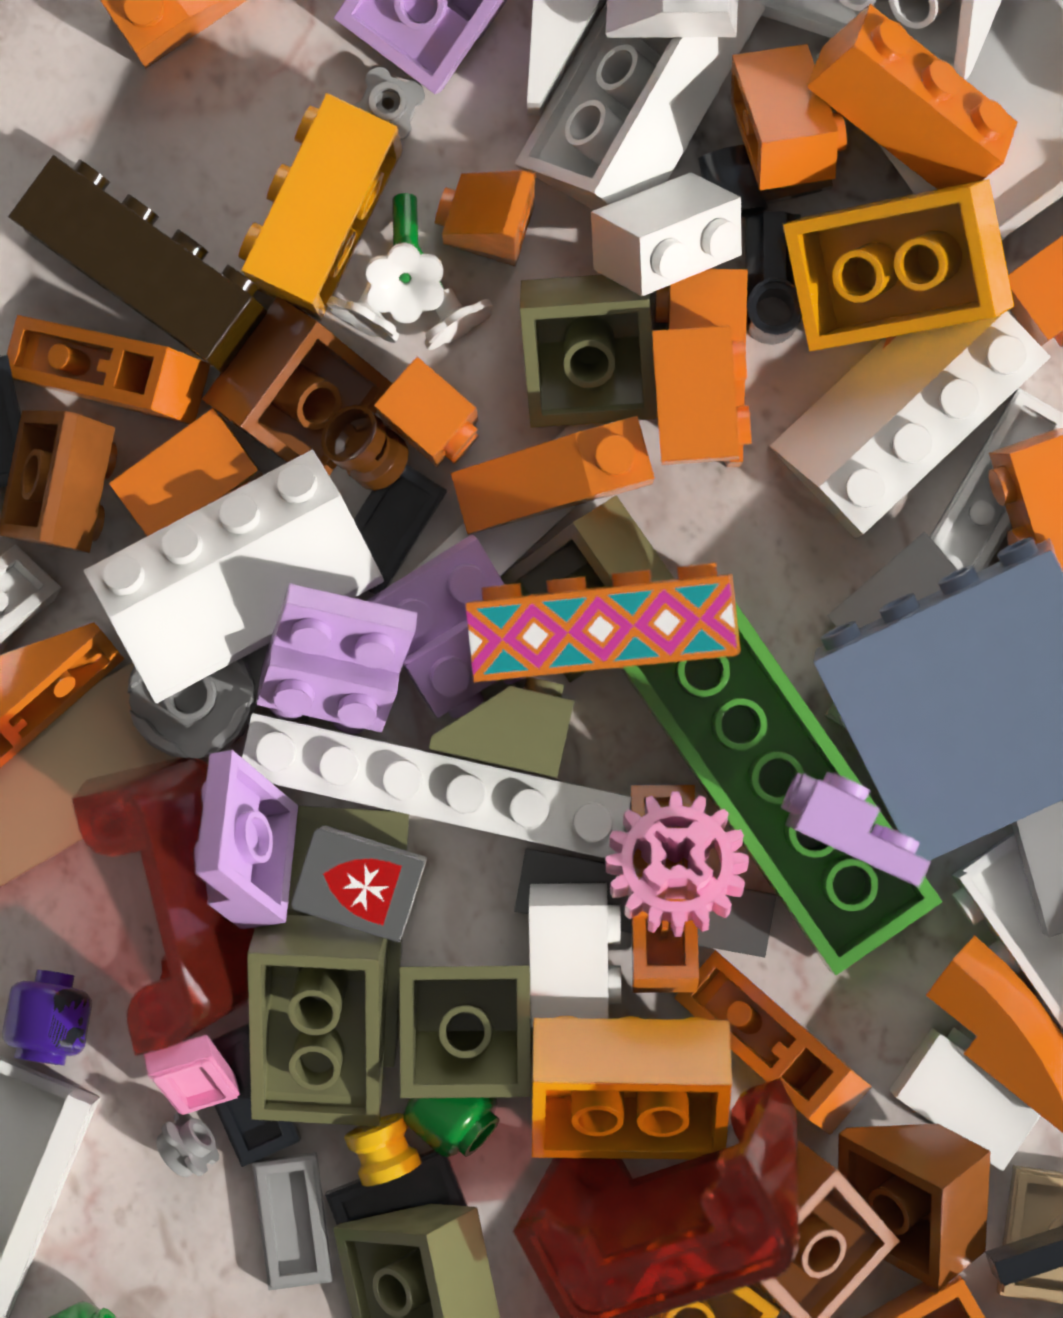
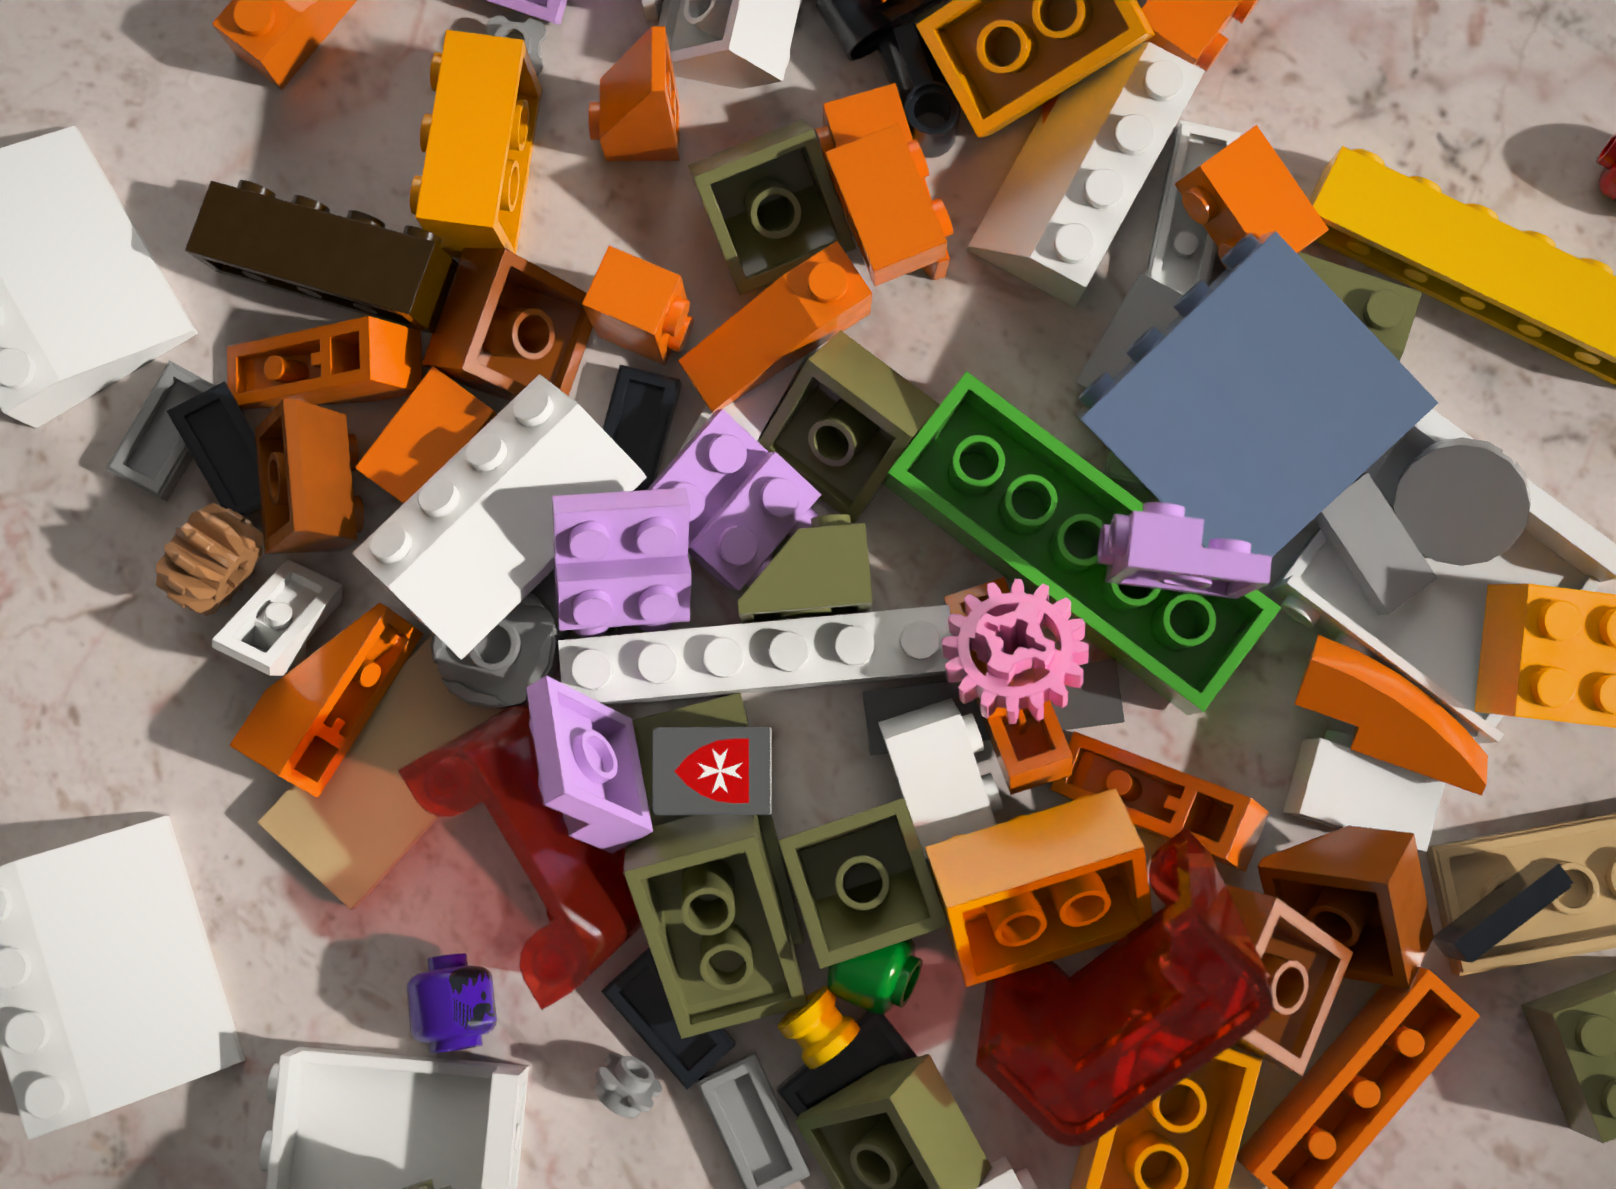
camera: 15 degrees left, 5 degrees down
(192, 1075) = (607, 1012): bright pink tile -> none
(364, 447) = (587, 359): reddish brown wheel -> none
(406, 285) = (576, 184): white plant -> none
(603, 626) = (870, 441): brick -> none
(666, 233) = (809, 71): white brick -> none

